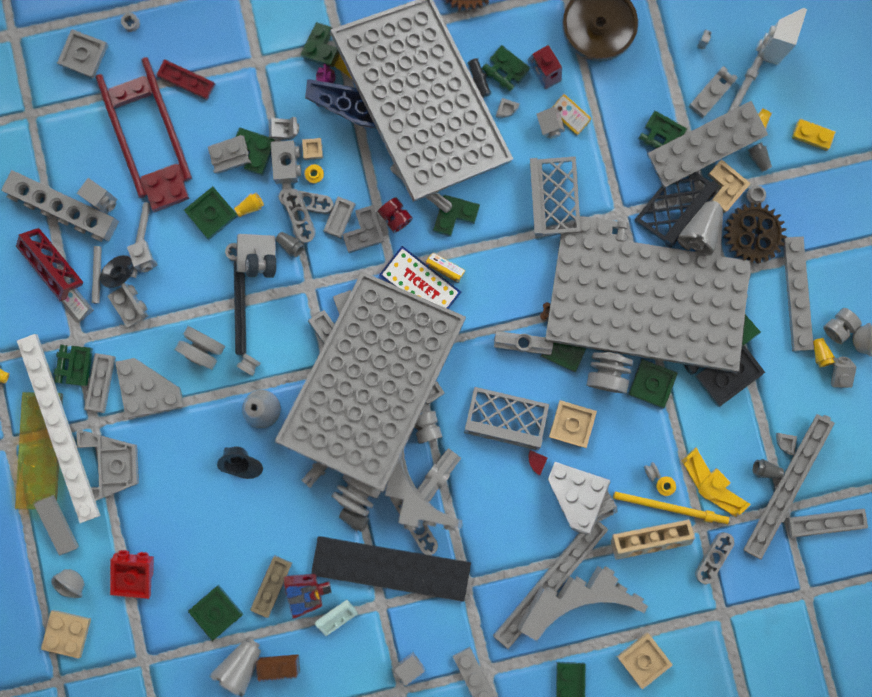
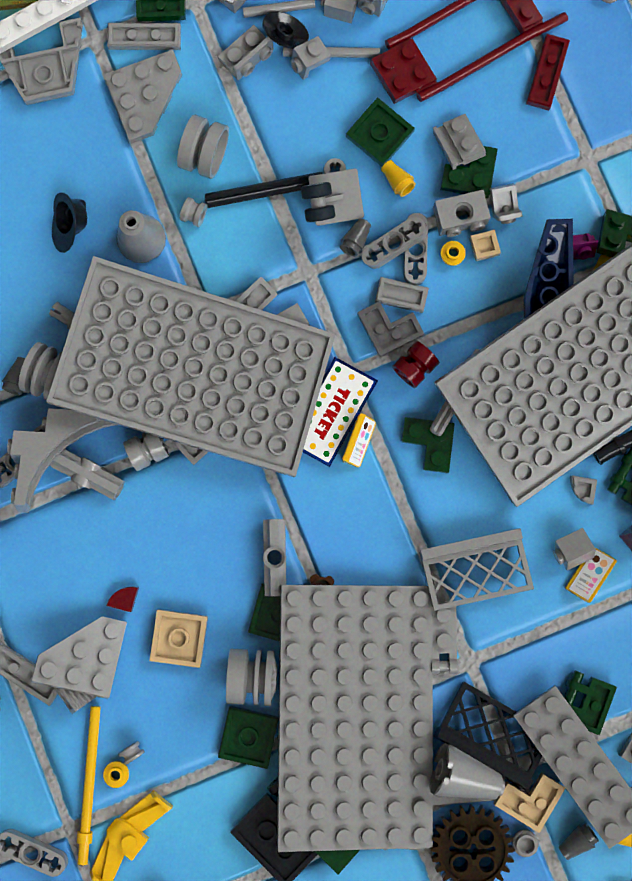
camera: 85 degrees right, 0 degrees up
(501, 434) = (152, 549): light grey fence -> none
(652, 539) = (41, 766): tan brick -> none

